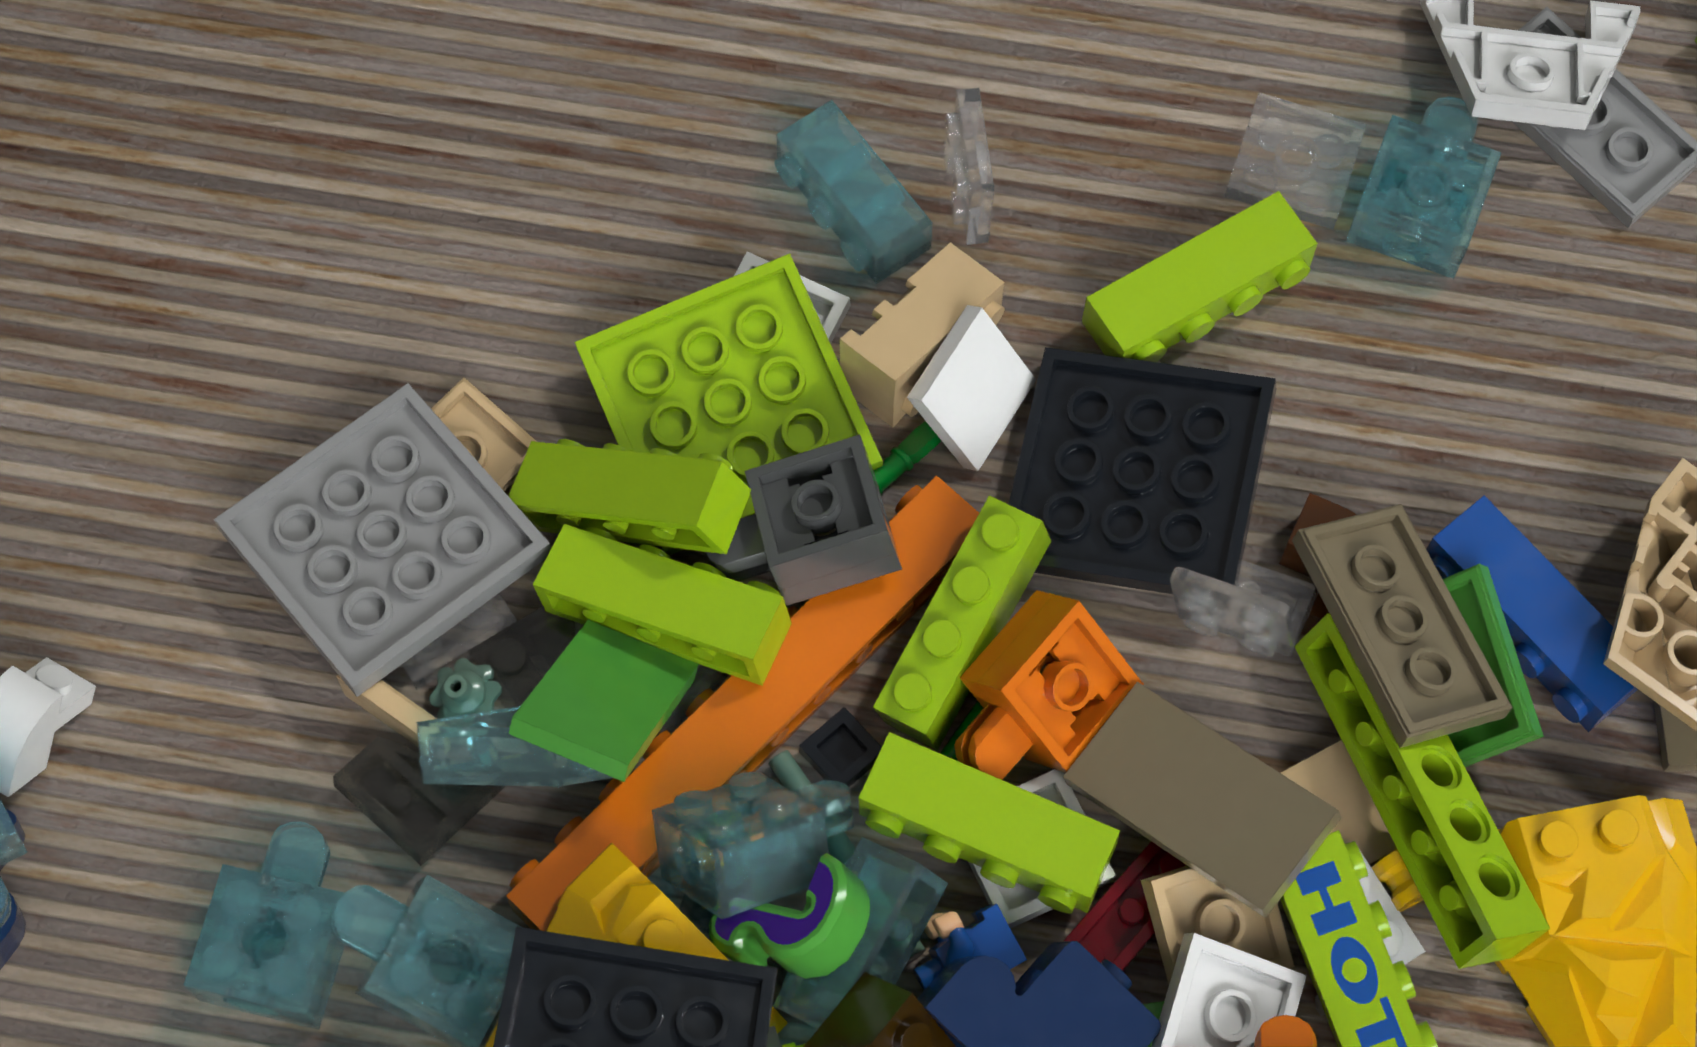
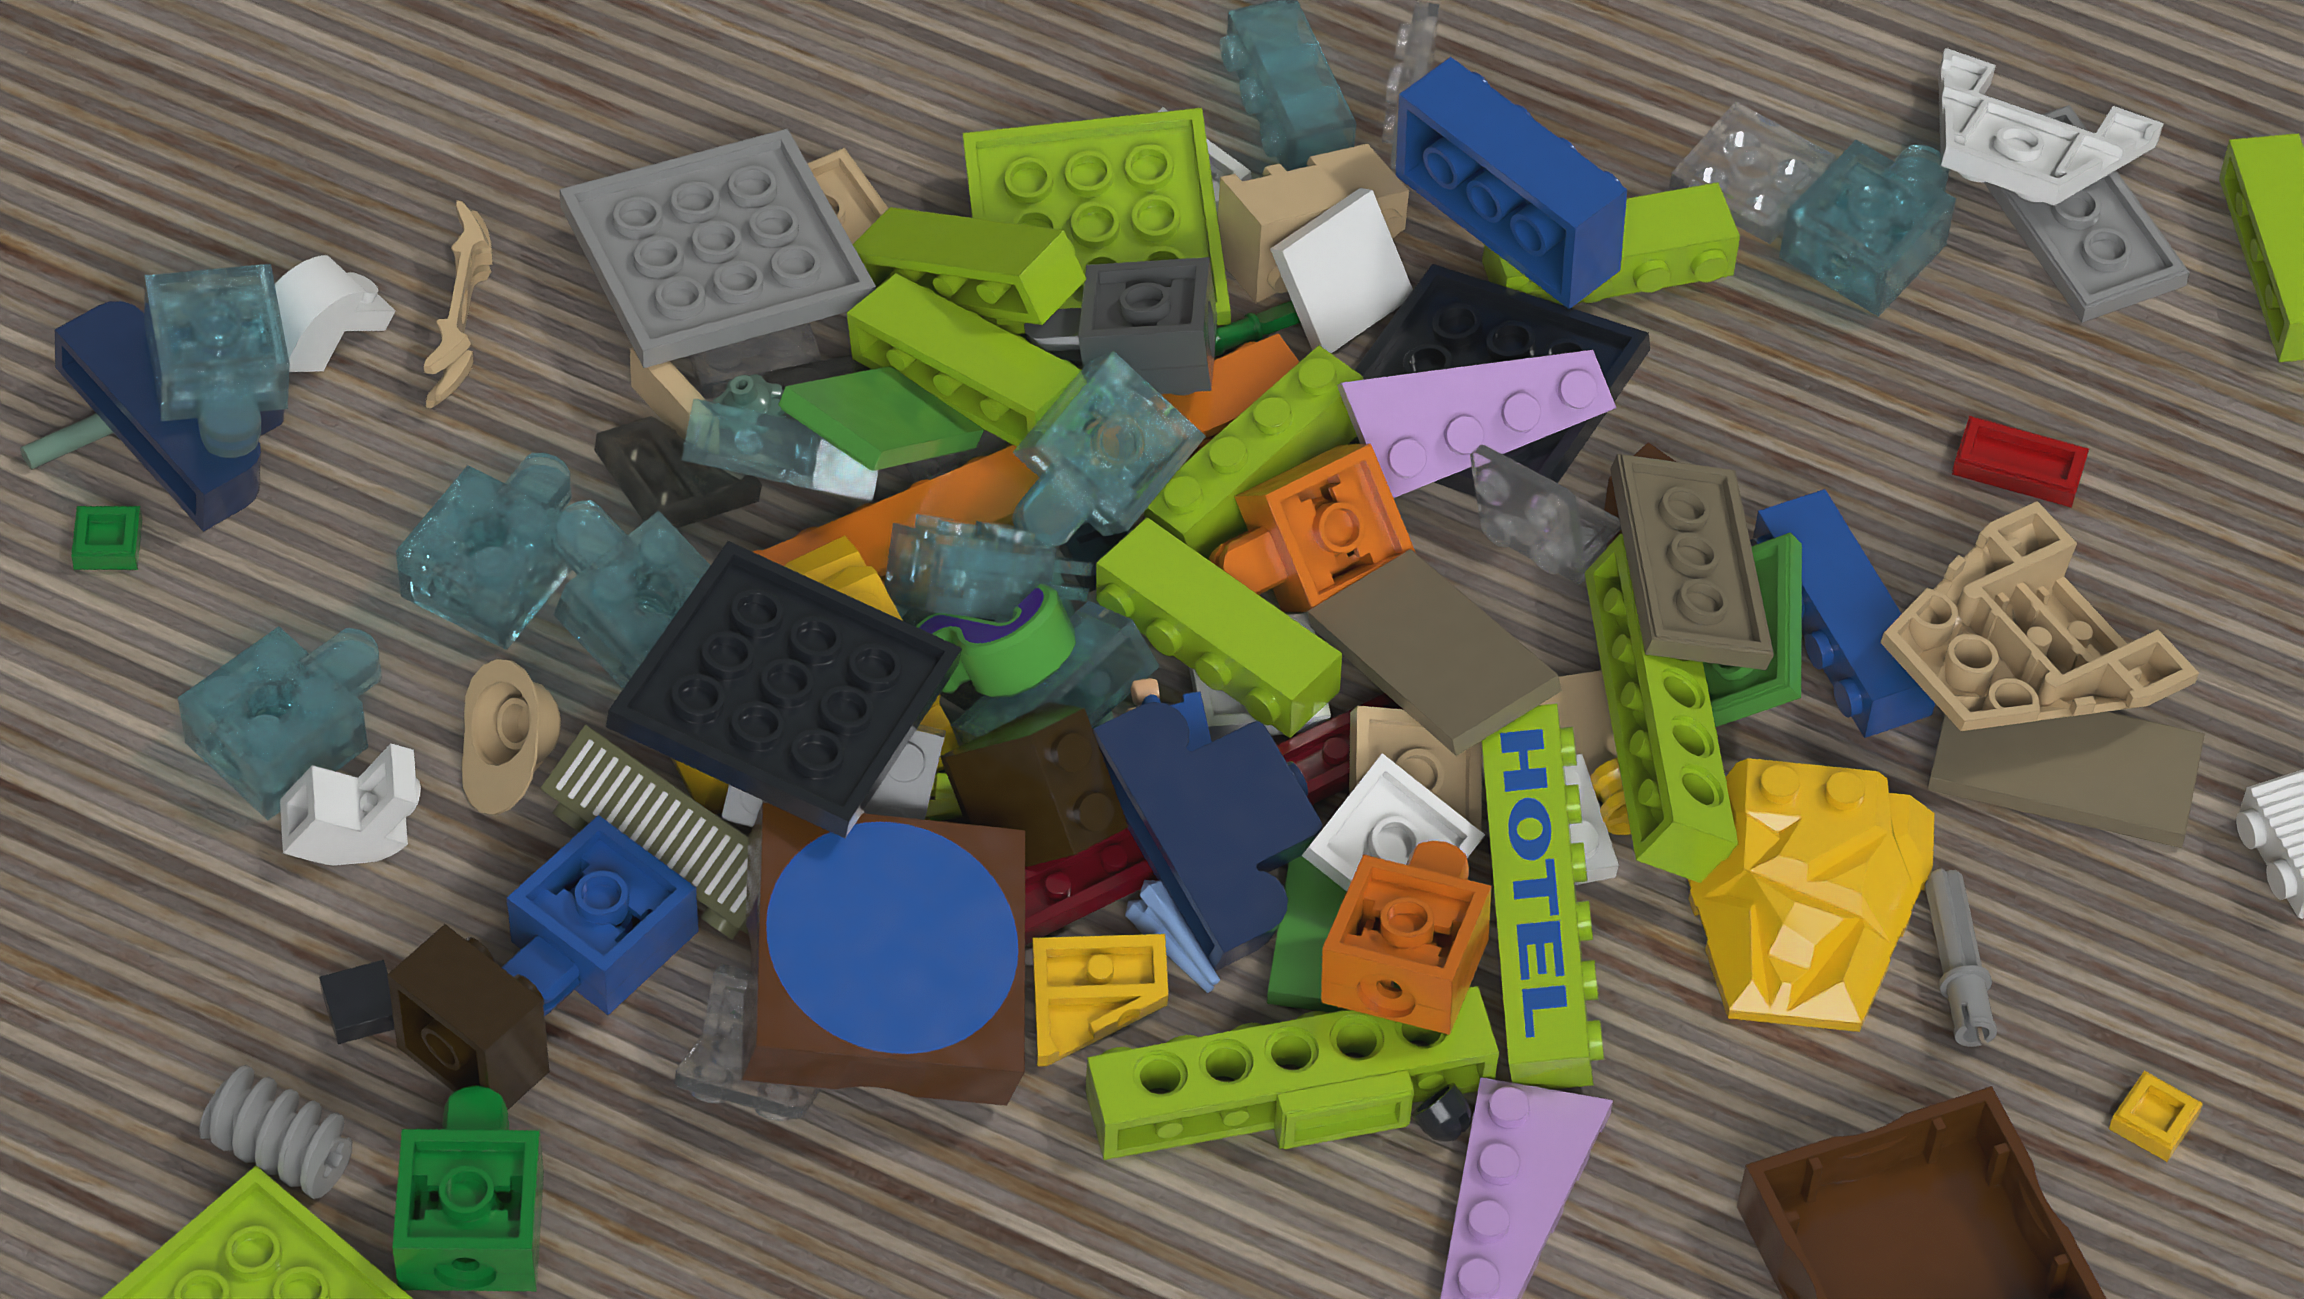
camera: 15 degrees right, 15 degrees down
(151, 611) = (472, 264): none -> tan piece
(846, 698) = (1101, 453): none -> clear light blue brick
(1108, 263) = (1510, 182): none -> blue brick
(1135, 539) = (1435, 419): none -> lavender wing
(1628, 395) = (2020, 461): none -> red tile

